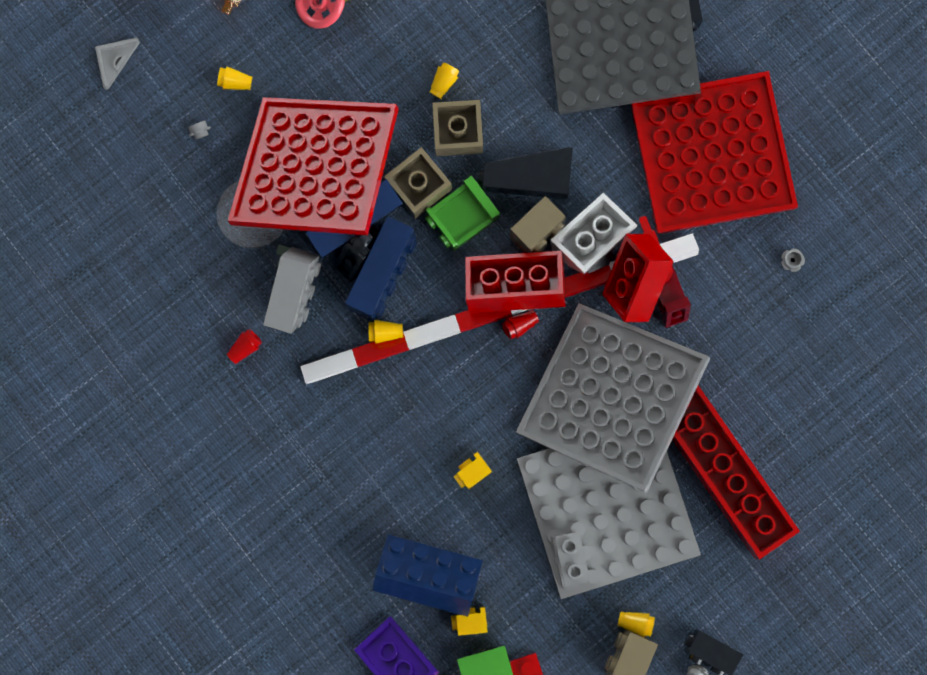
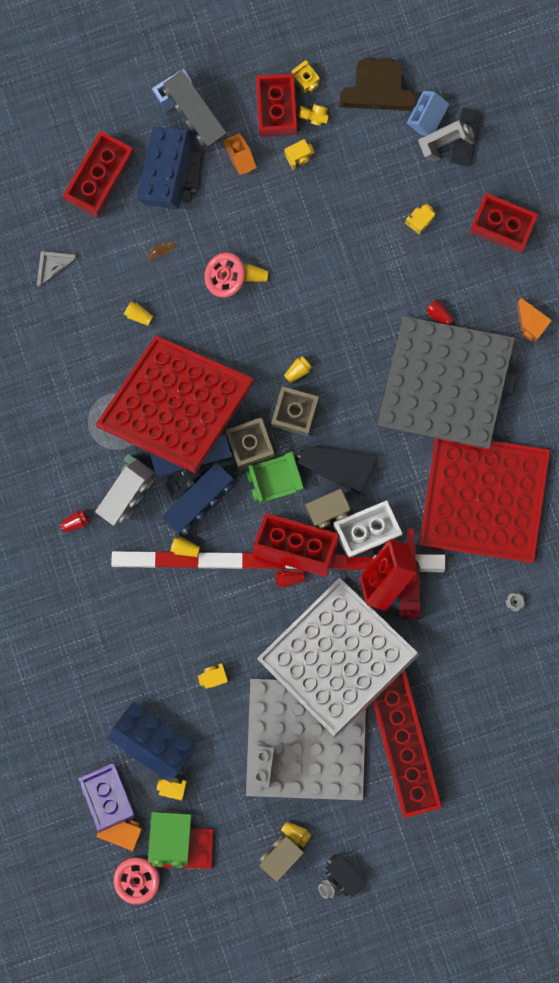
camera: 20 degrees right, 0 degrees up
(199, 130) = (98, 343): light grey plate -> none

